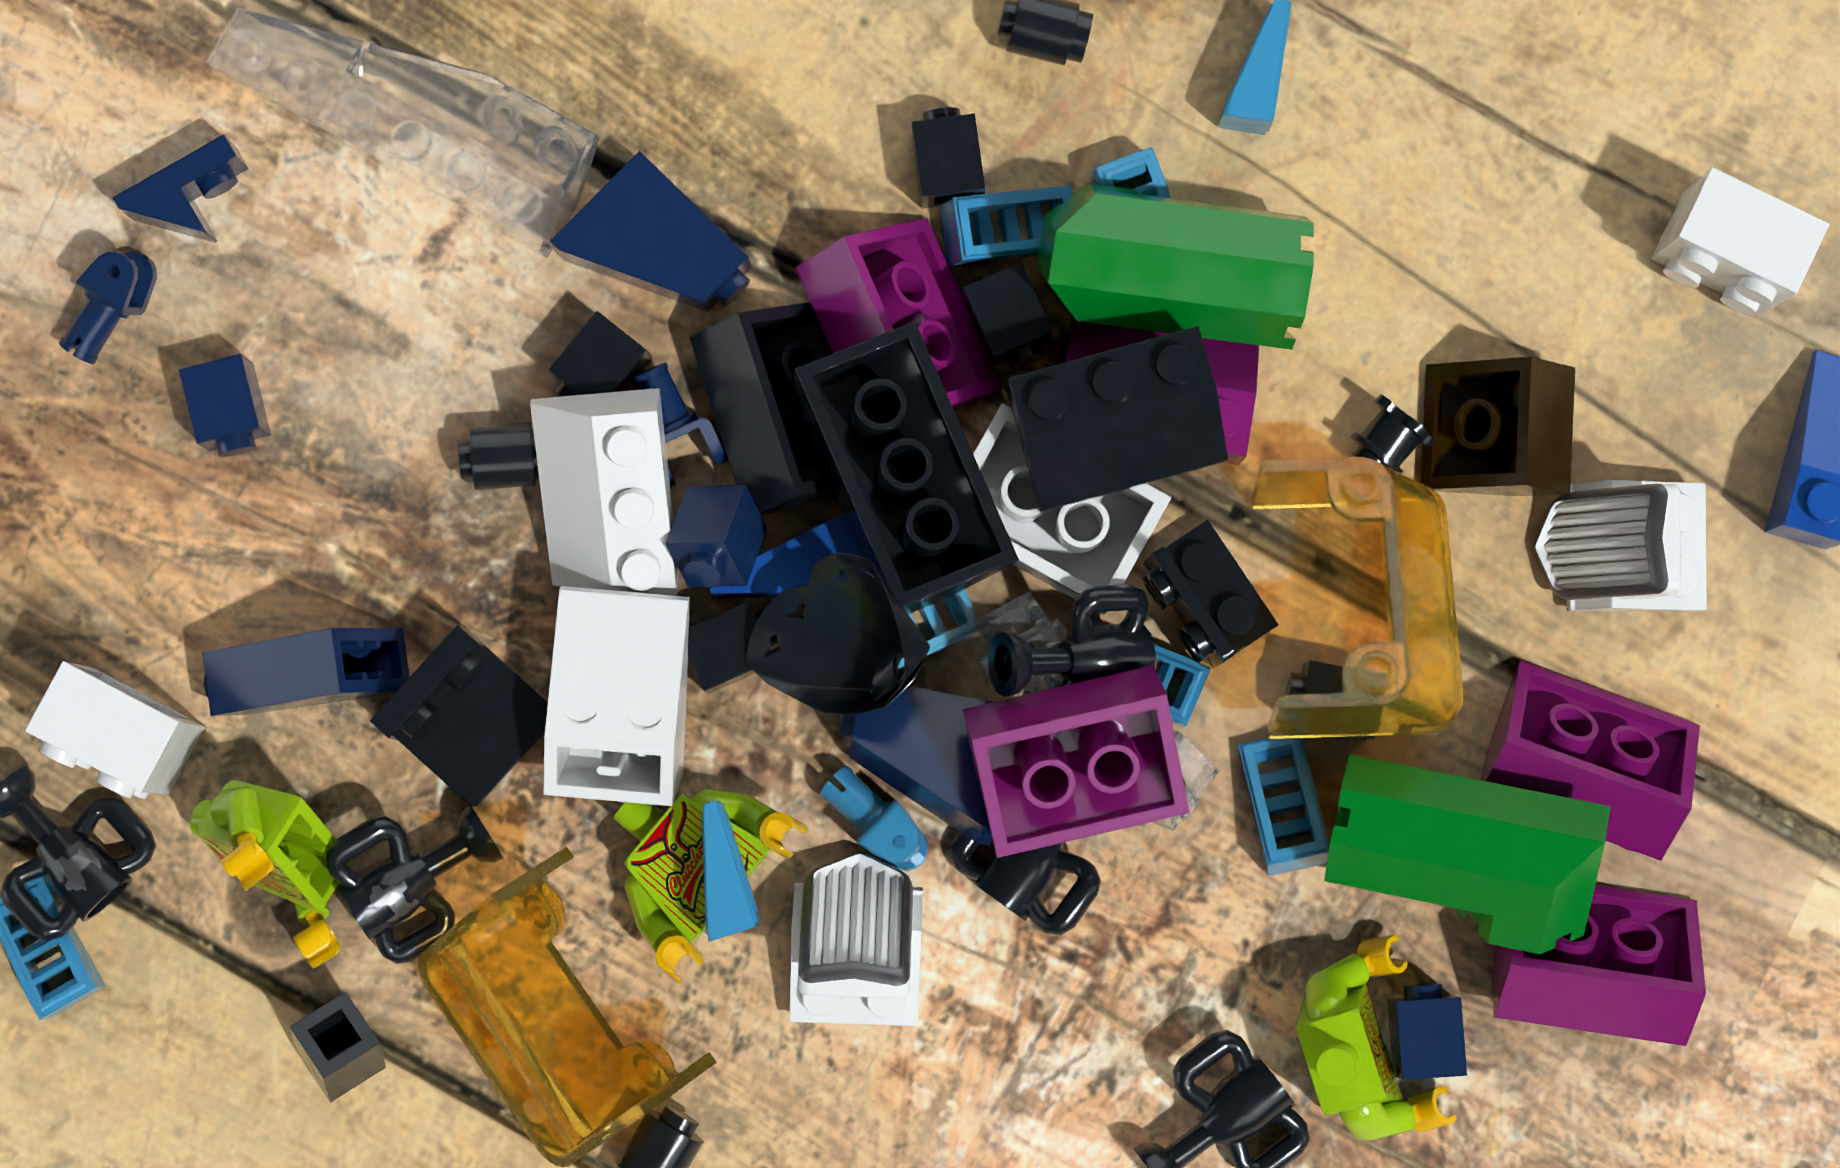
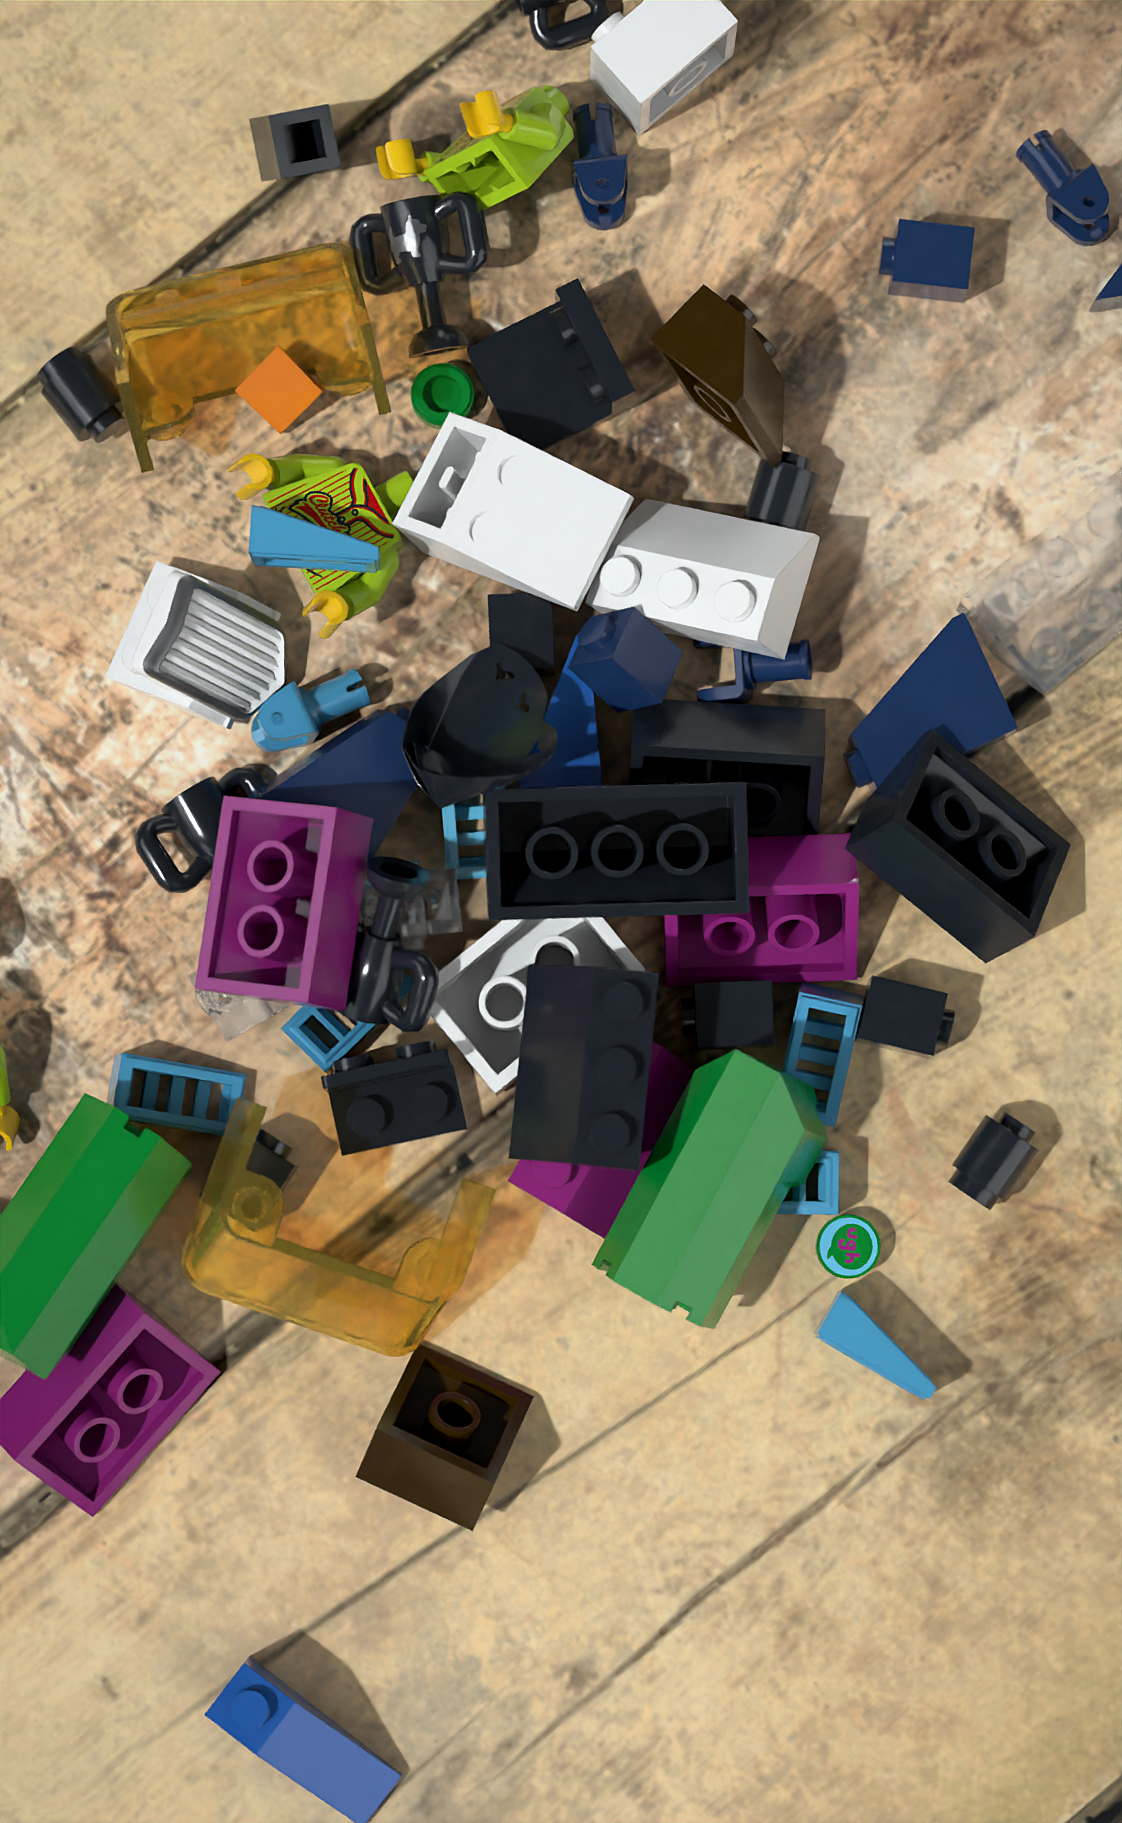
camera: 115 degrees right, 0 degrees up
(257, 745) = (600, 172): none -> dark blue piece
(305, 670) = (650, 241): dark blue slope -> none
(403, 547) = (727, 369): none -> dark brown slope
(527, 814) = (441, 390): none -> green tile
(580, 969) = (279, 389): none -> orange slope
(598, 360) = (835, 617): black brick -> none
(772, 161) = (960, 848): none -> black slope
(1176, 131) = (848, 1246): none -> tile
(1390, 436) = (474, 1328): black brick -> none
(1626, 546) = (285, 1513): white piece -> none
(1739, 243) = (528, 1732): white brick -> none

